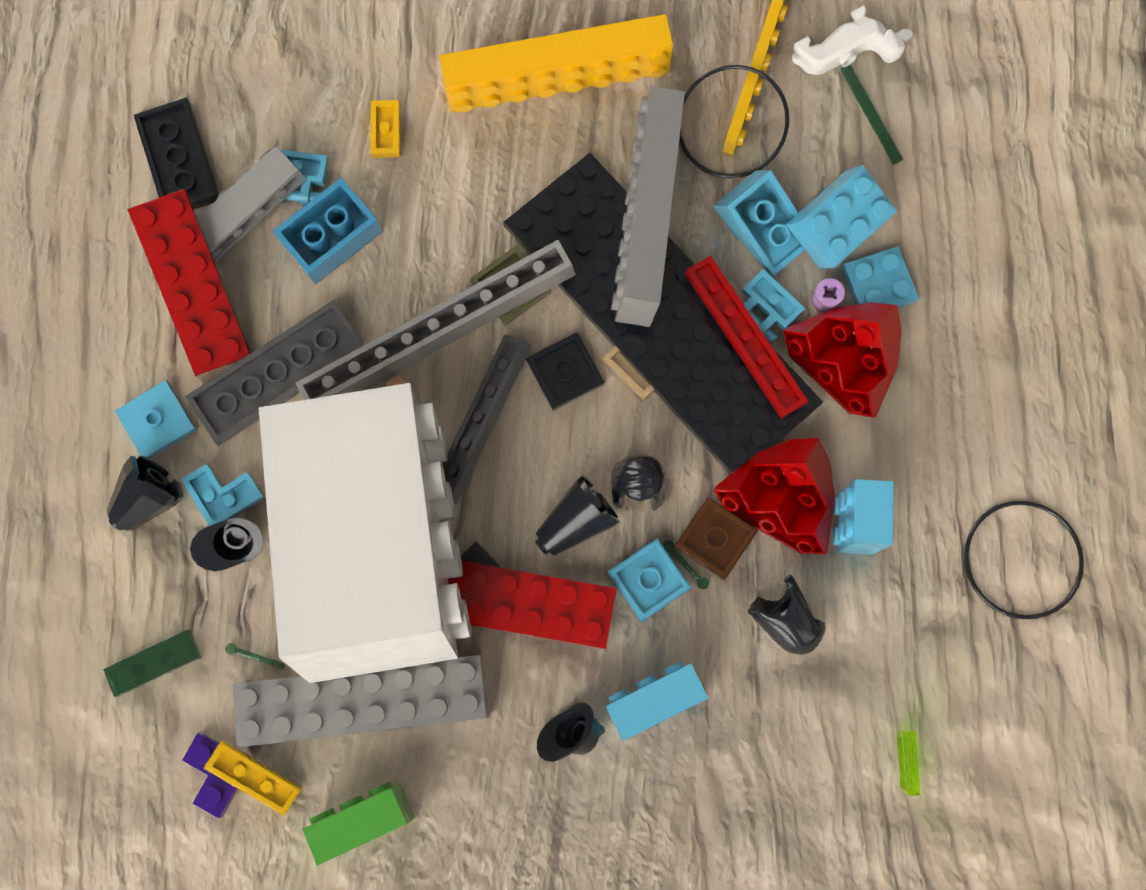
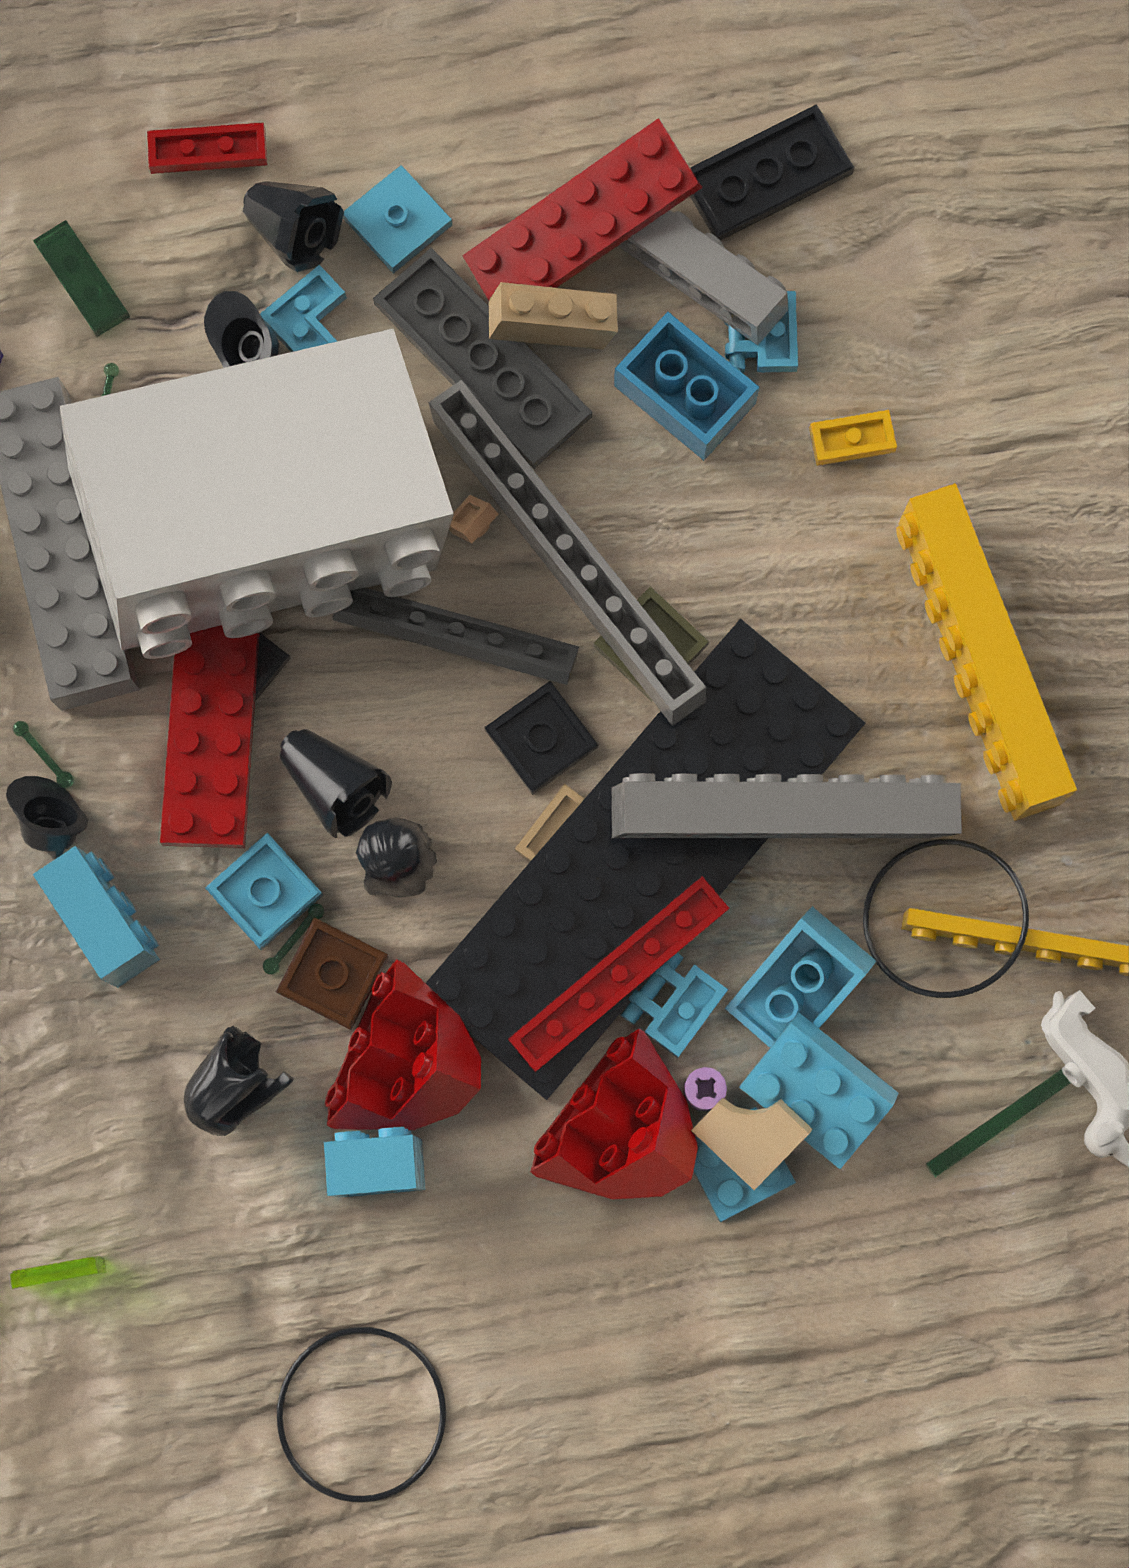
camera: 80 degrees right, 0 degrees up
(68, 553) = (207, 148): none -> red plate
(257, 314) = (552, 316): none -> tan brick
(542, 720) = (63, 778): none -> clear green hinge
(871, 263) = (752, 1140): none -> tan tile

